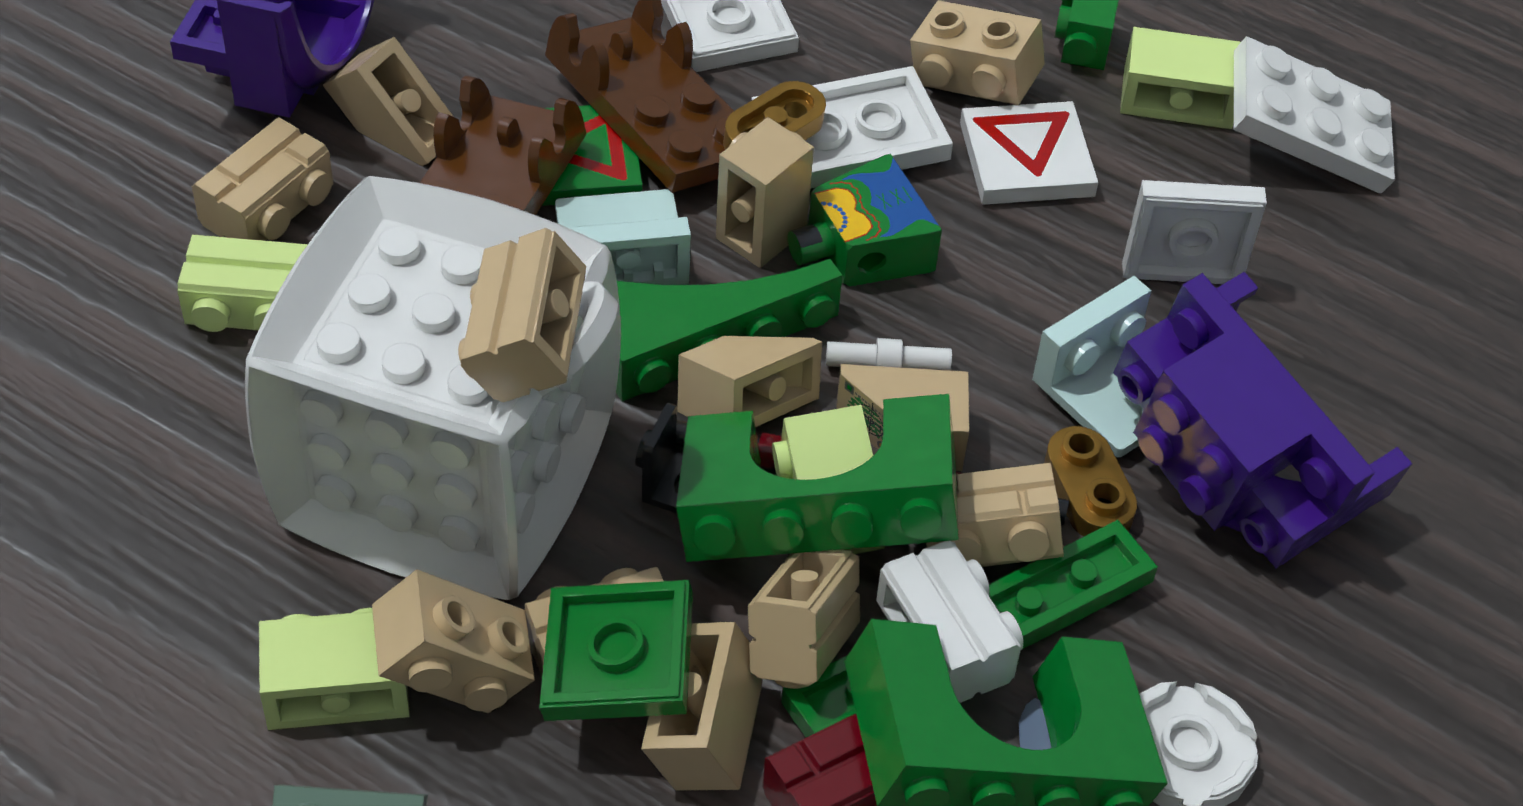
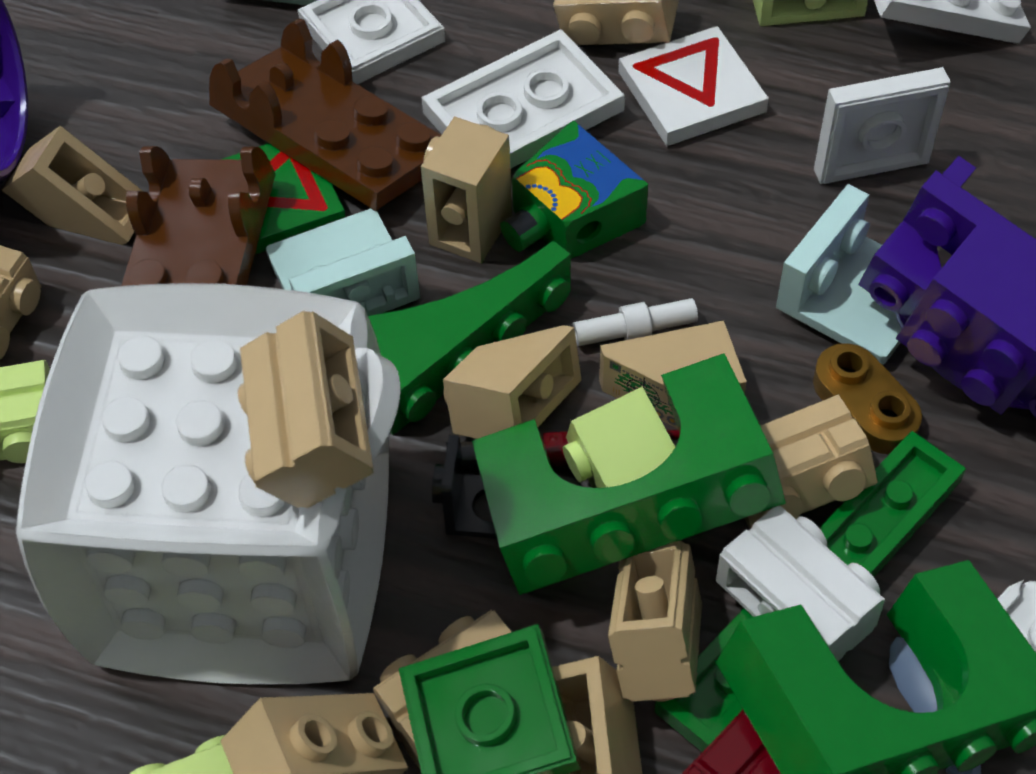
camera: 10 degrees left, 5 degrees up
(790, 104) = (453, 99): pearl gold plate -> none

